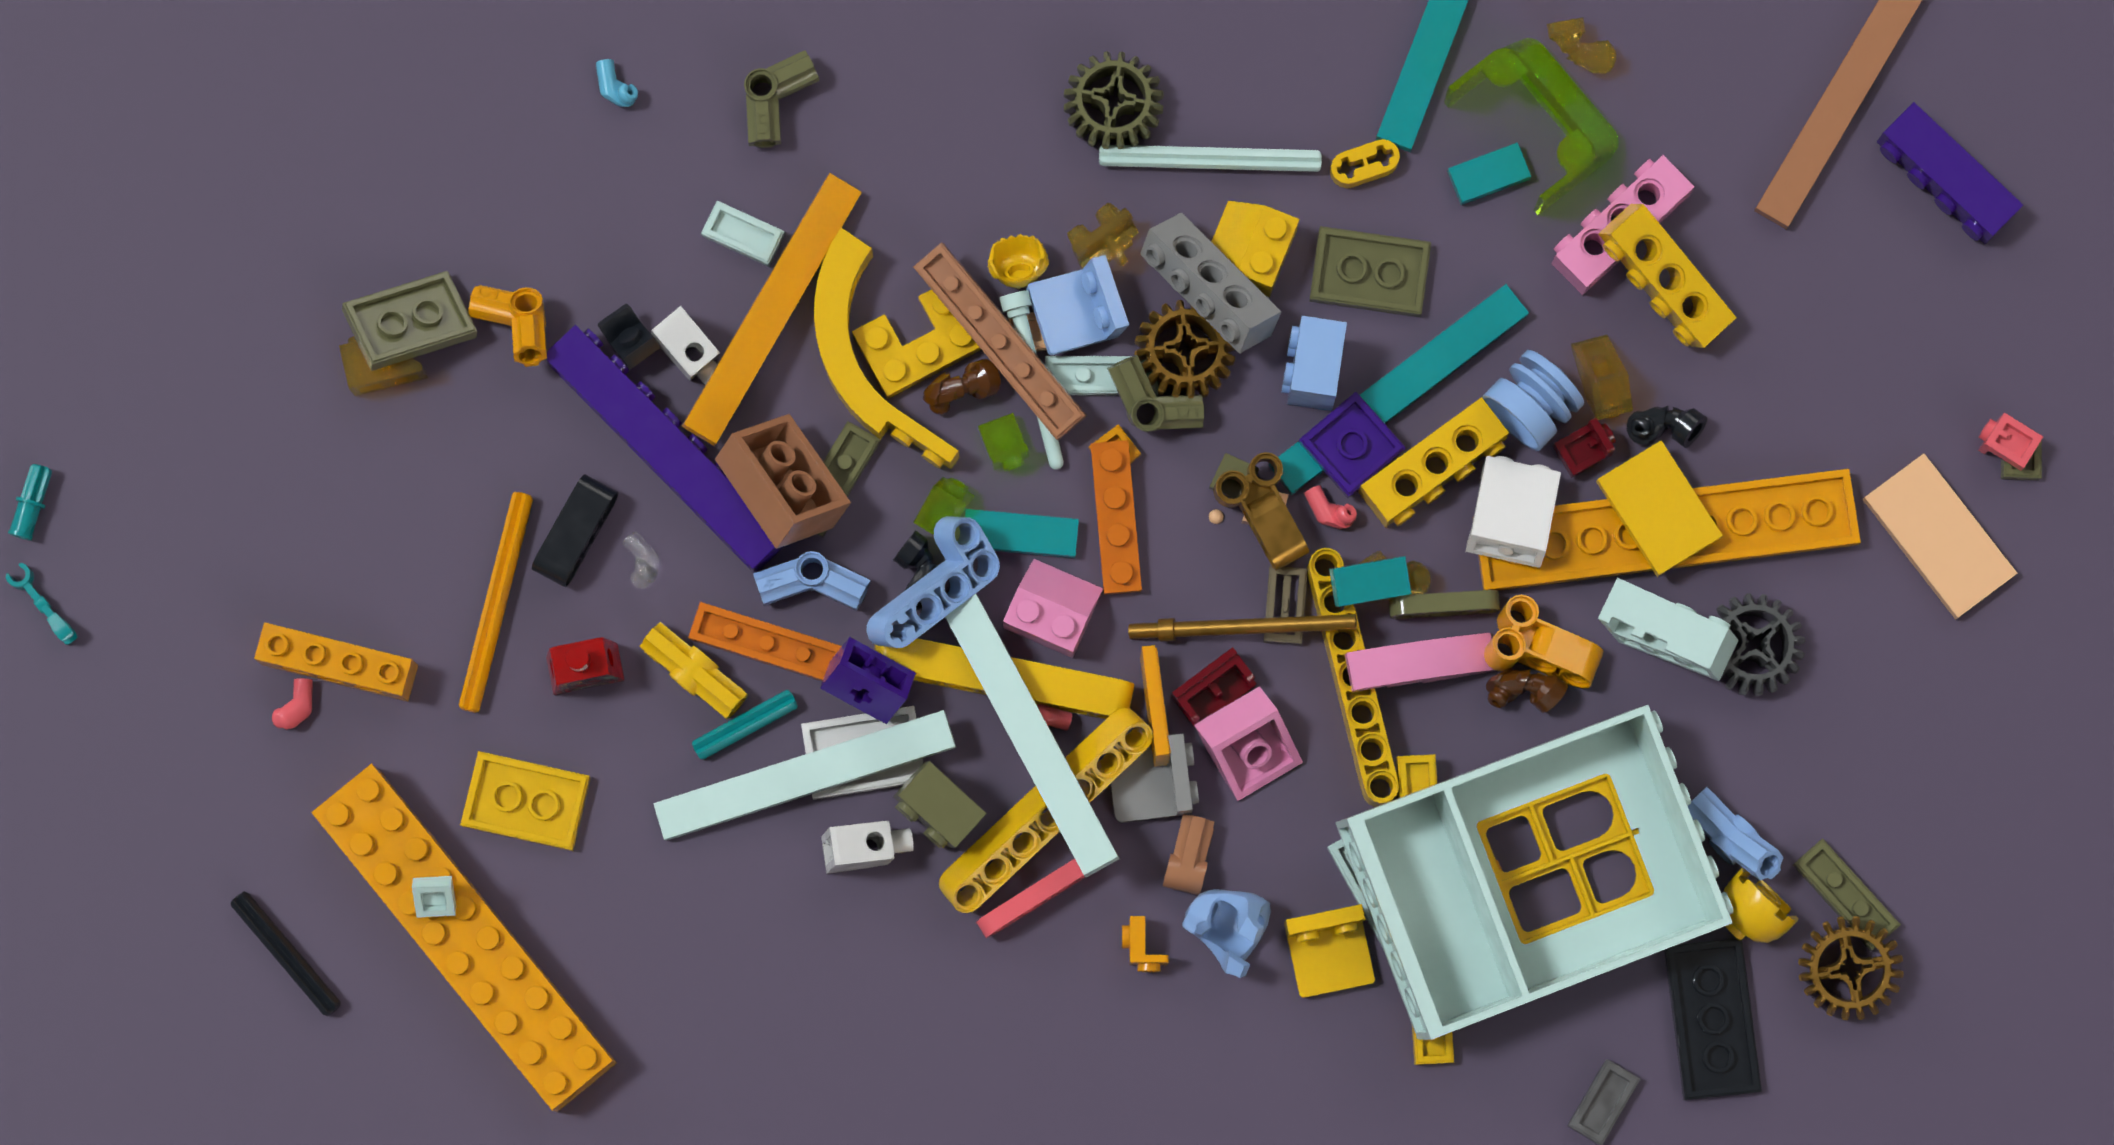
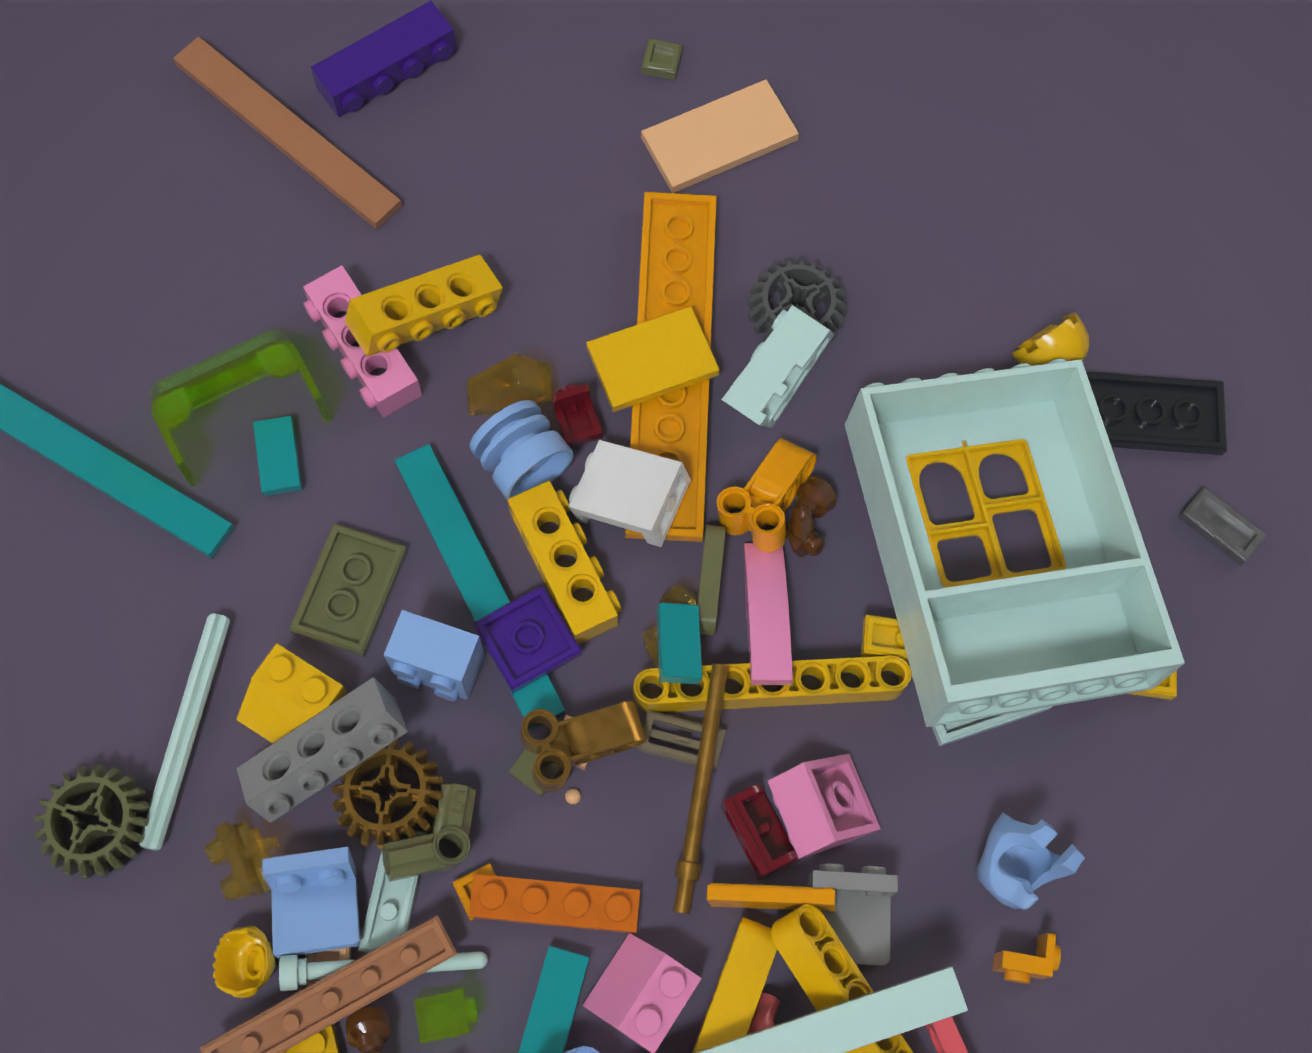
camera: 85 degrees left, 10 degrees down
(1187, 863) = (947, 894): nougat piece -> none
(1329, 513) = (593, 677): coral arm -> none
(1329, 951) = (1052, 761): yellow bracket -> none
(1361, 155) = (243, 572): yellow beam -> none
(1595, 56) = (185, 336): clear yellow arm -> none
(1650, 425) = (566, 358): black arm -> none
(1734, 837) = (989, 348): light blue piece -> none
(1843, 890) = (1041, 276): olive tile -> none
(1857, 1000) = (1107, 291): pearl gold gear -> none
(2009, 440) = (644, 58): coral bracket -> none

